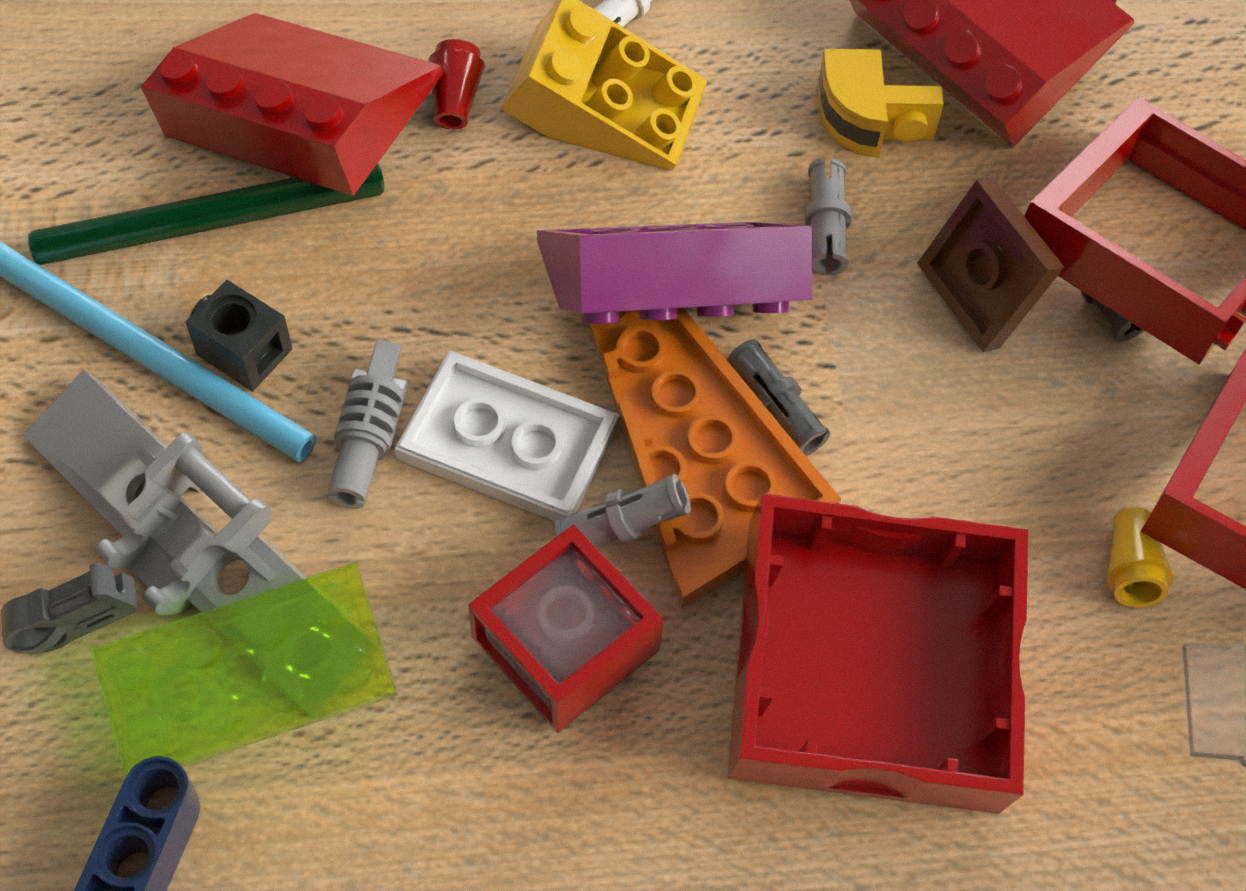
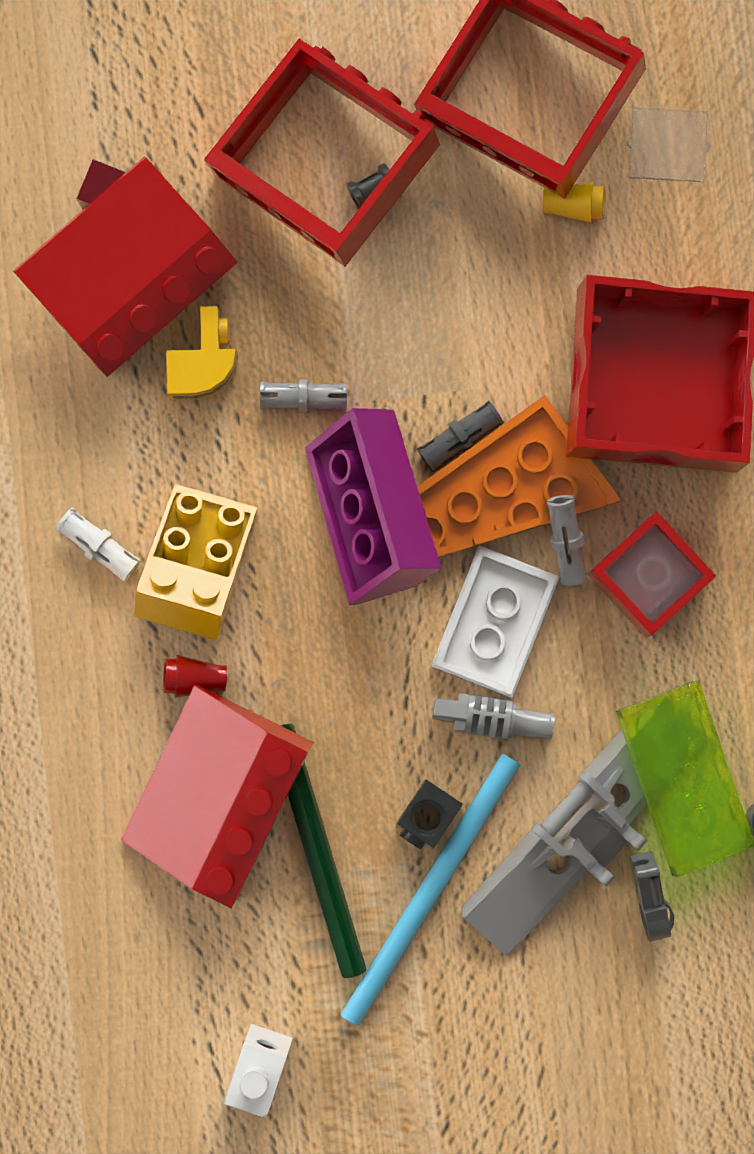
camera: 90 degrees left, 25 degrees up
(989, 264) = (362, 282): reddish brown plate -> none

